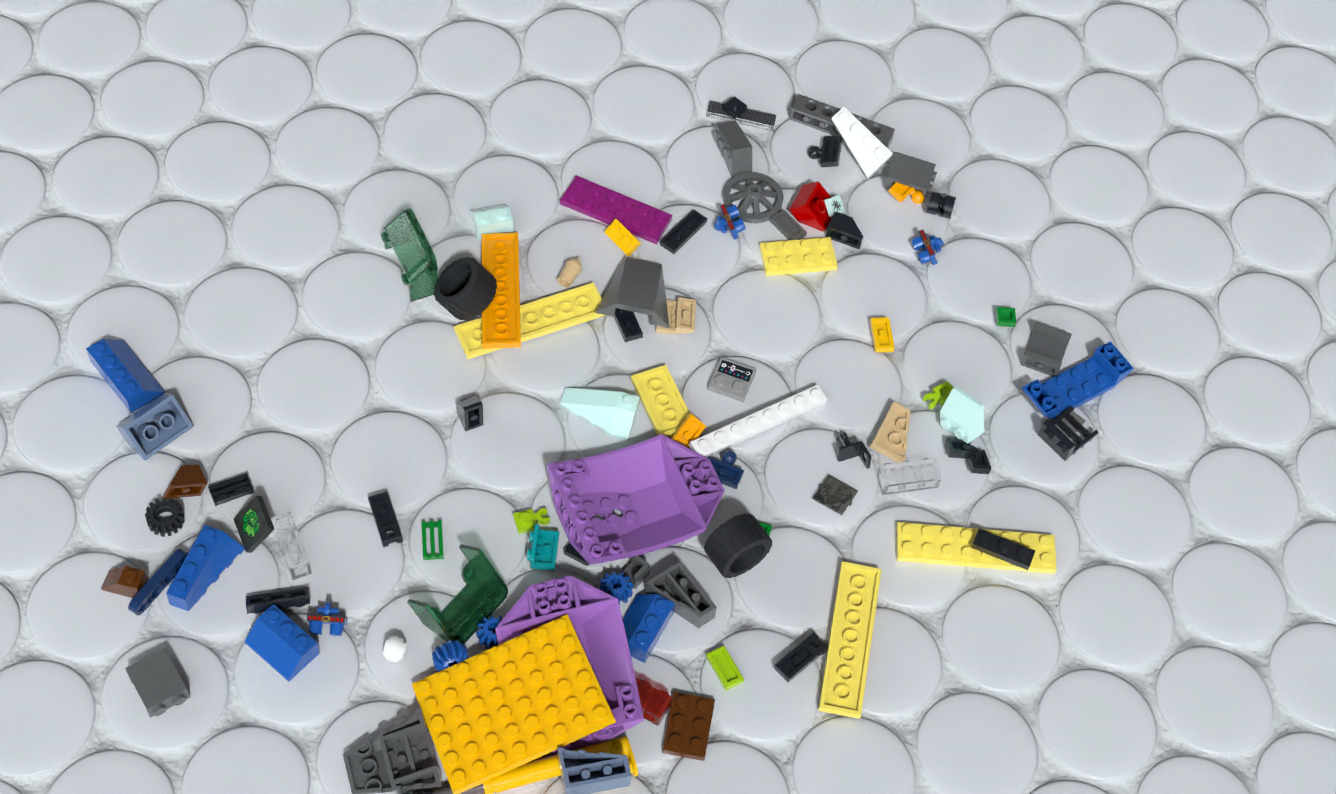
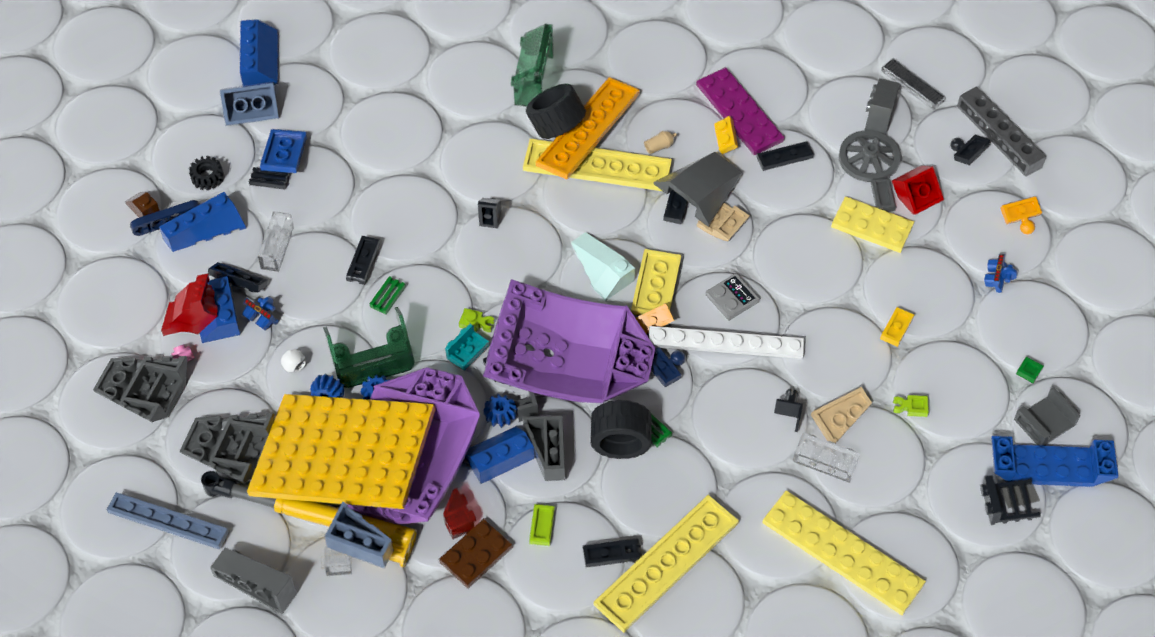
camera: 40 degrees right, 0 degrees up
(157, 683) = (107, 290): dark grey panel -> none
(186, 483) = (236, 154): reddish brown slope -> none
(227, 455) = (283, 151): none -> blue plate
(254, 524) = (261, 210): pearl dark grey tile -> none
(261, 654) = (192, 308): none -> red slope
(266, 753) = (145, 385): none -> dark grey wedge
(280, 703) = (183, 351): none -> bright pink plate
(492, 220) = (626, 70): light aqua slope -> none
(734, 107) = (909, 73): black plate -> none
(735, 226) = (828, 167): blue hips -> none
(834, 204) = (937, 196): light aqua tile -> none
(835, 494) = (749, 438): clear smoke piece -> none
(844, 230) = (930, 221): black slope -> none
(861, 142) = (1005, 160): white wing -> none
(911, 172) = (1034, 202): dark grey panel -> none
(941, 204) = (1040, 241): black wheel -> none
(962, 415) = (912, 431): light aqua slope -> none
(976, 459) = (903, 471): black plate -> none
(1003, 549) = (863, 565): black plate -> none

